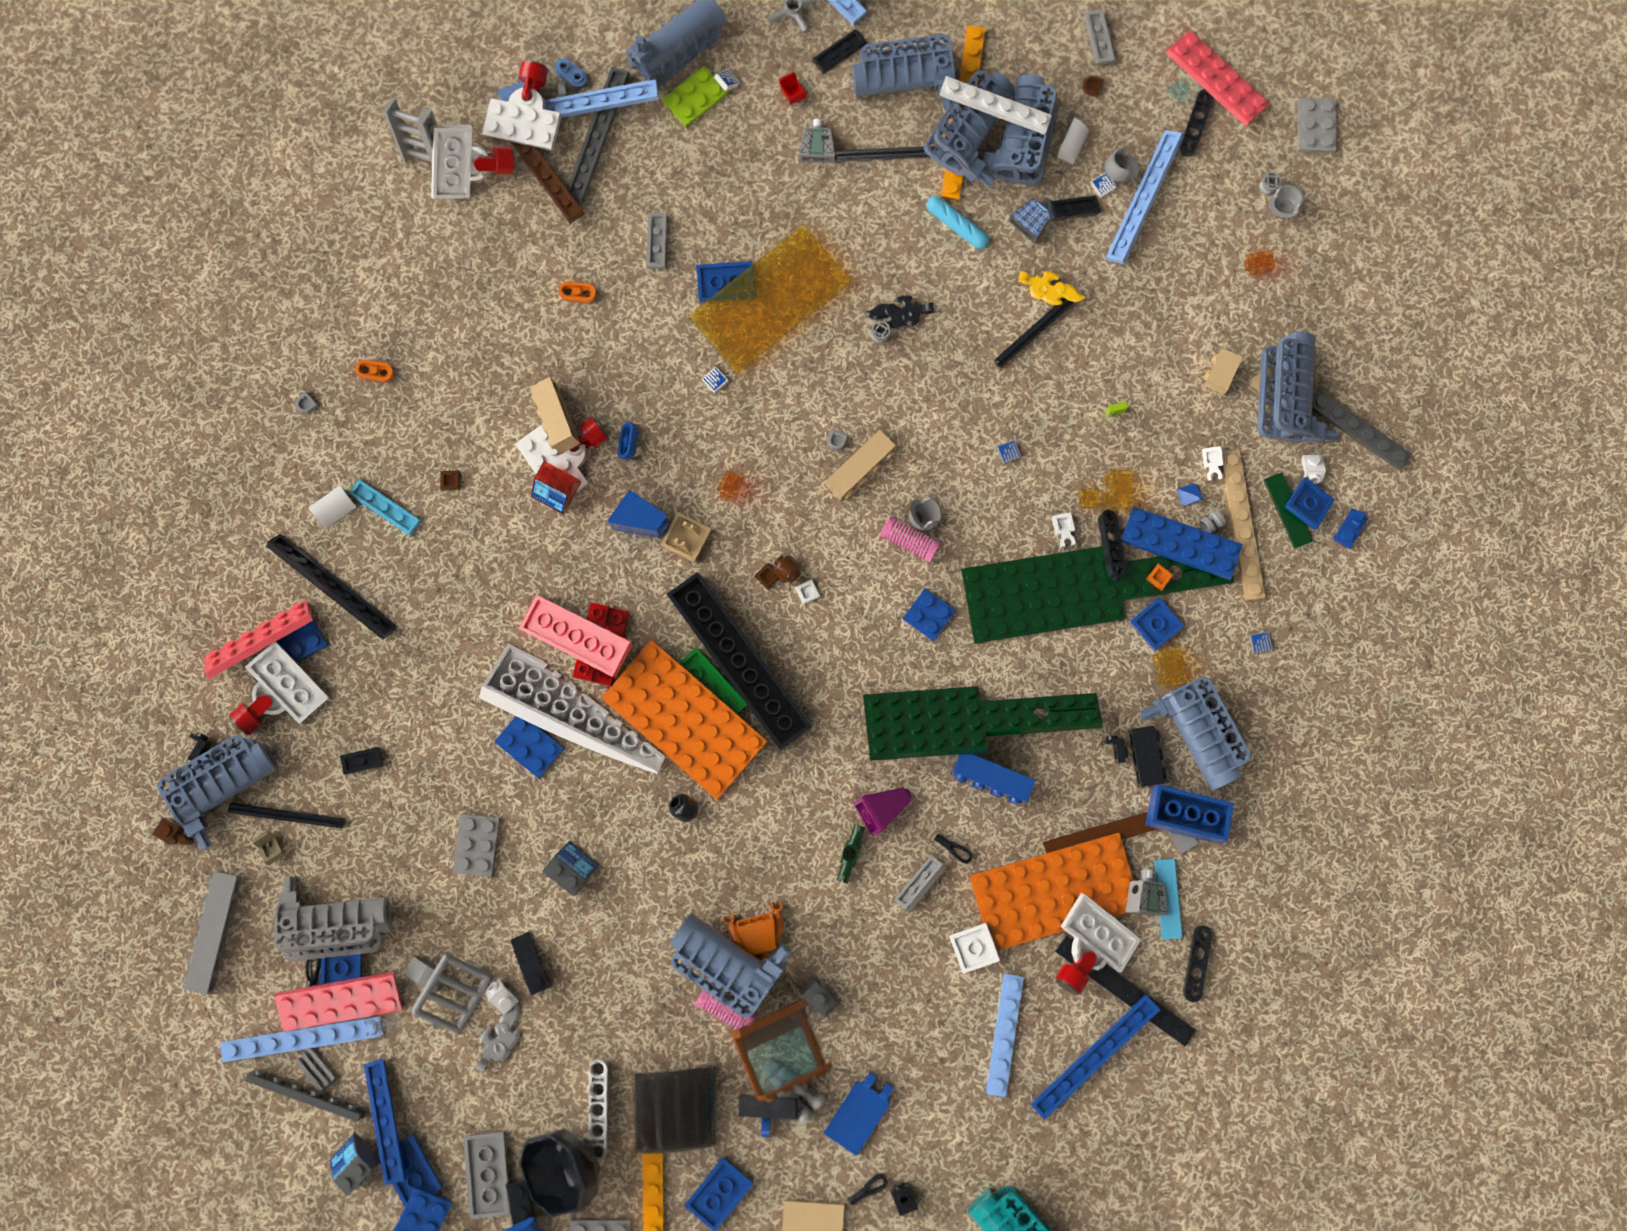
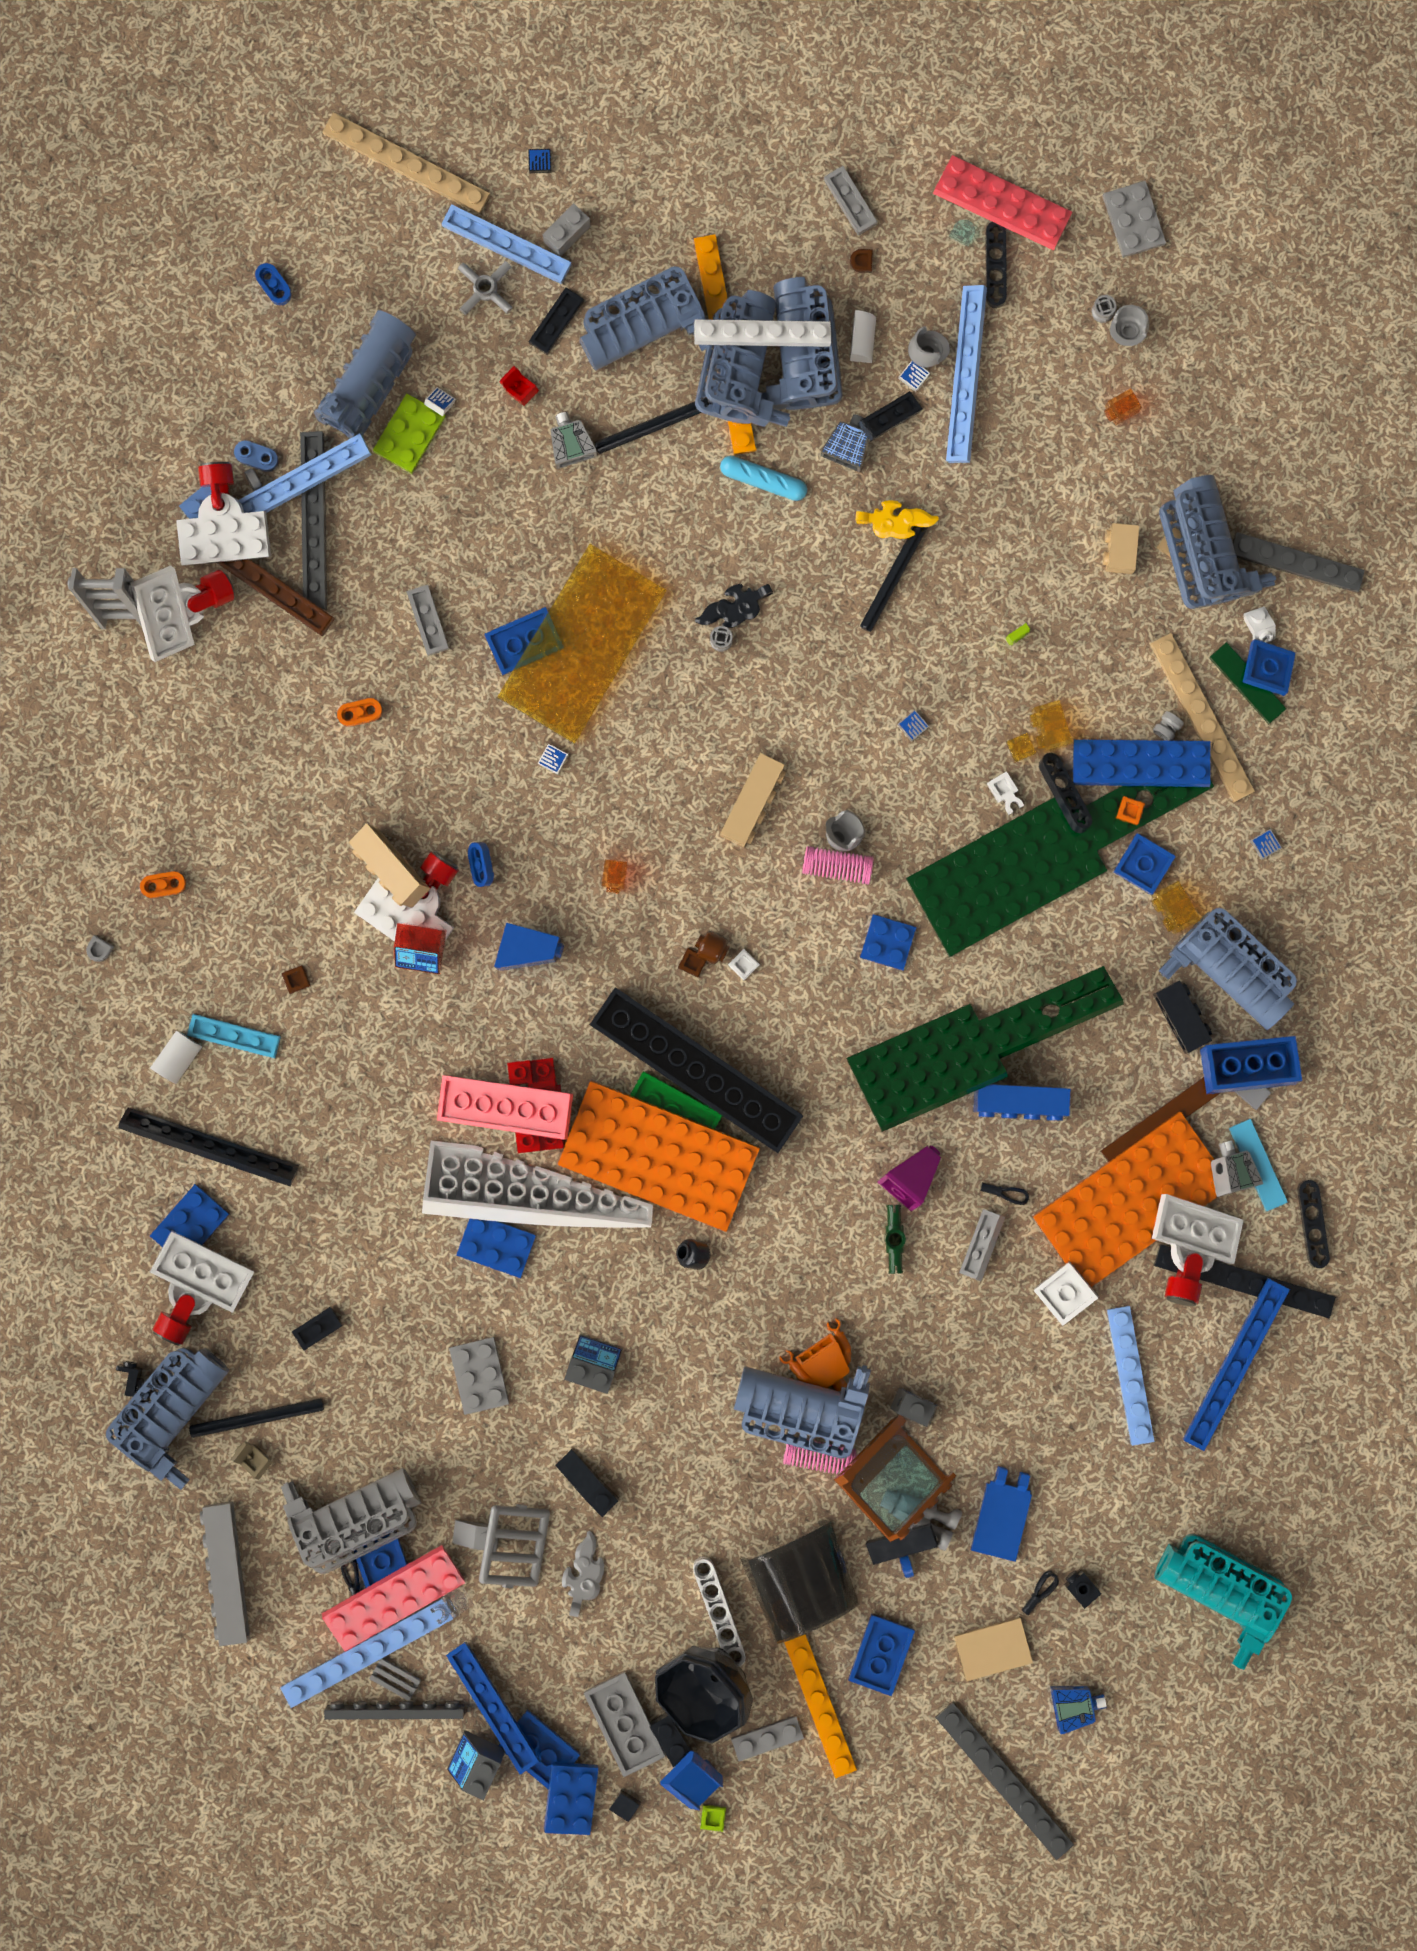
camera: 20 degrees left, 5 degrees up
(171, 832) = (137, 1481): reddish brown brick -> none
(257, 639) = (150, 1235): coral plate -> none
(501, 996) = (568, 1529): white bracket -> none
(686, 537) = (585, 951): tan plate -> none
(836, 440) = (715, 780): light grey tile -> none
(1120, 751) = (1151, 1021): black bracket -> none
(1189, 494) = (1131, 703): slope -> none
(1213, 459) = (1145, 654): white plate -> none
(1350, 528) = (1324, 679): blue plate -> none

